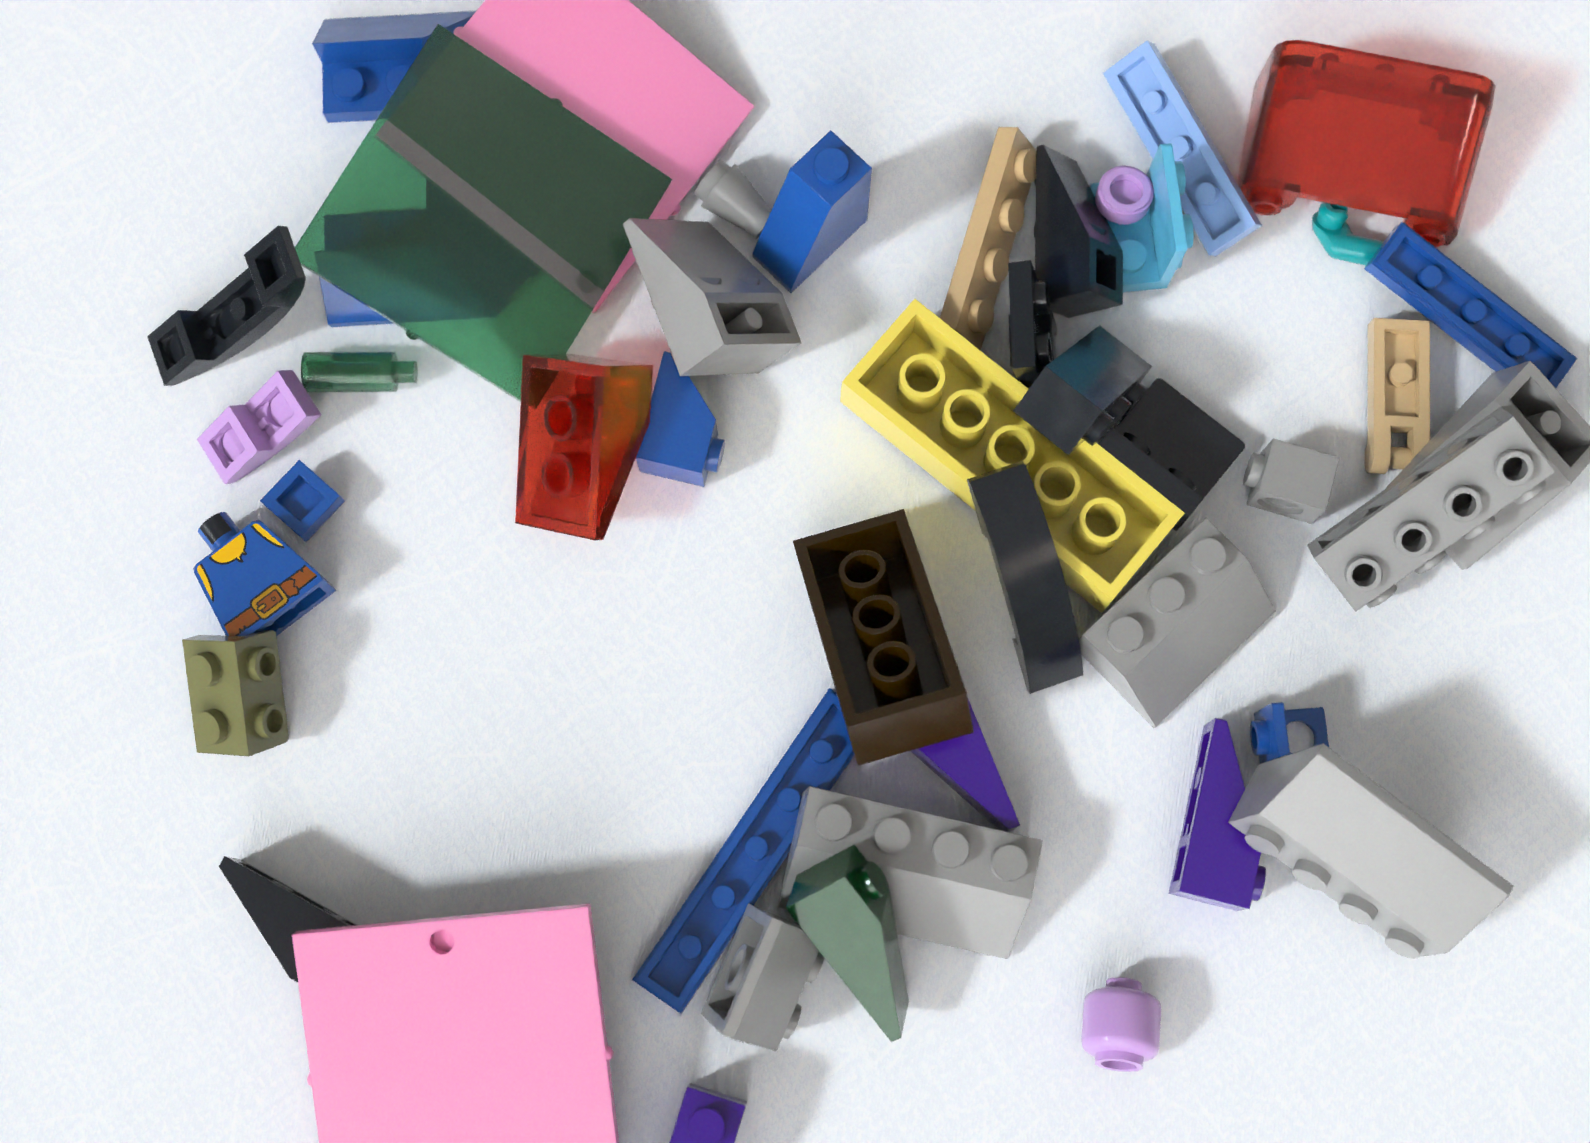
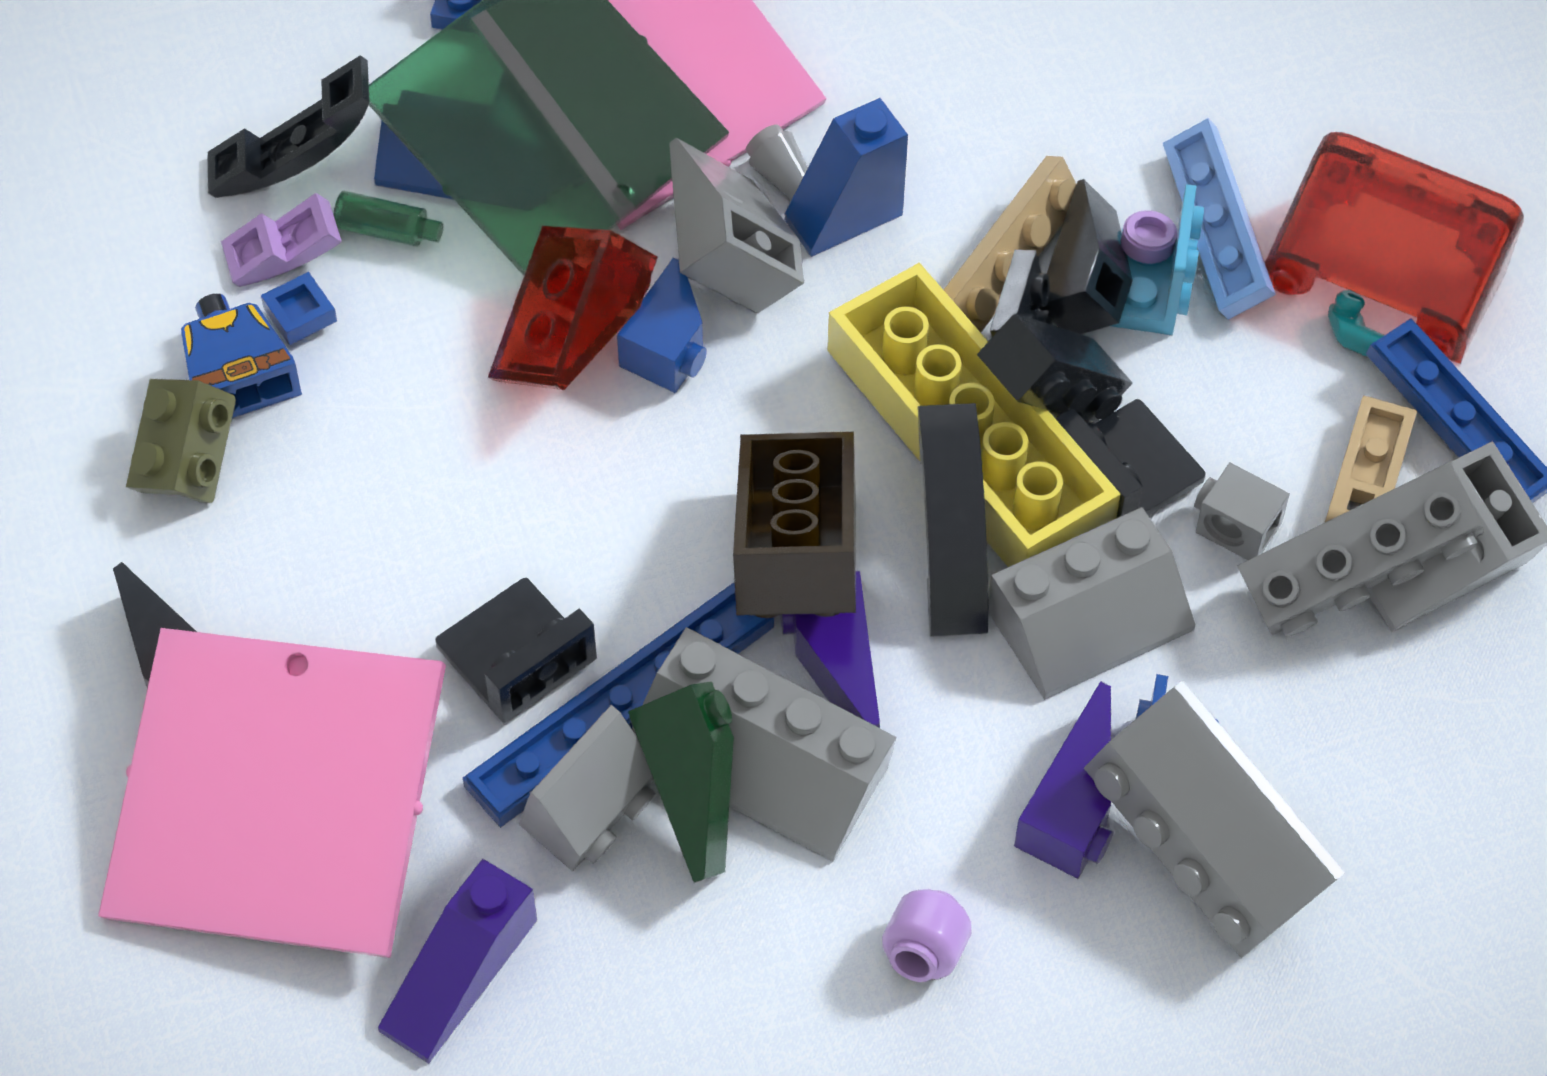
camera: 15 degrees right, 20 degrees down
(638, 824) = (518, 648): none -> black bracket

